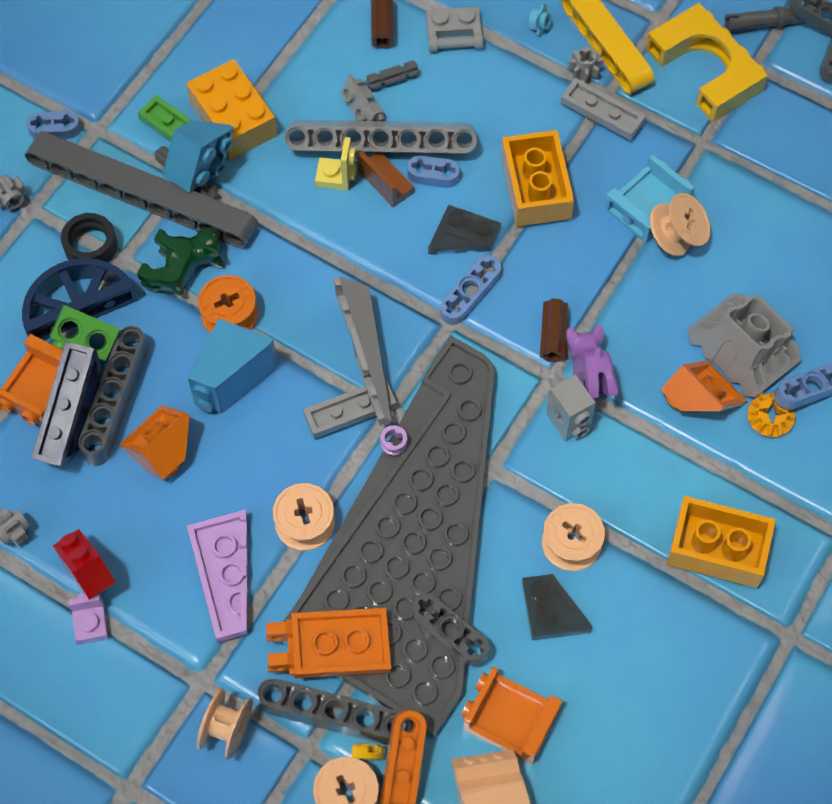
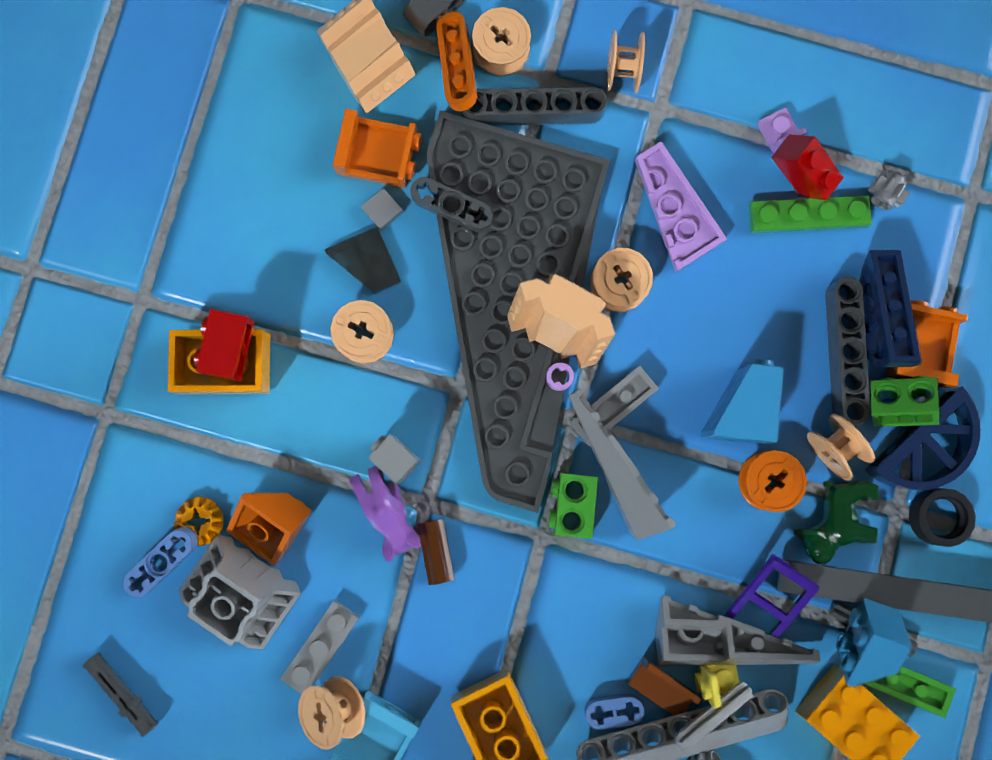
camera: 160 degrees right, 20 degrees up
(102, 533) = (810, 214): none -> bright green plate
(158, 312) = (841, 447): none -> light nougat piece
(159, 442) = (786, 314): orange slope -> none
(310, 207) = (785, 618): none -> dark purple window
(331, 643) = (555, 159): orange tile -> none
(341, 203) = (700, 638): none -> light grey wedge
(358, 135) = (712, 717): none -> light grey axle
(368, 751) = (495, 79): yellow tile -> none
(371, 484) = (562, 318): none -> light nougat slope
(409, 332) = (583, 506): none -> bright green brick
(464, 232) = (560, 645): clear smoke wing -> none
(468, 302) = (518, 595): medium blue beam -> none
(522, 655) = (382, 209): none -> light grey tile
(679, 284) = (320, 647): none -> light grey plate
(709, 537) = (224, 345): none -> red brick

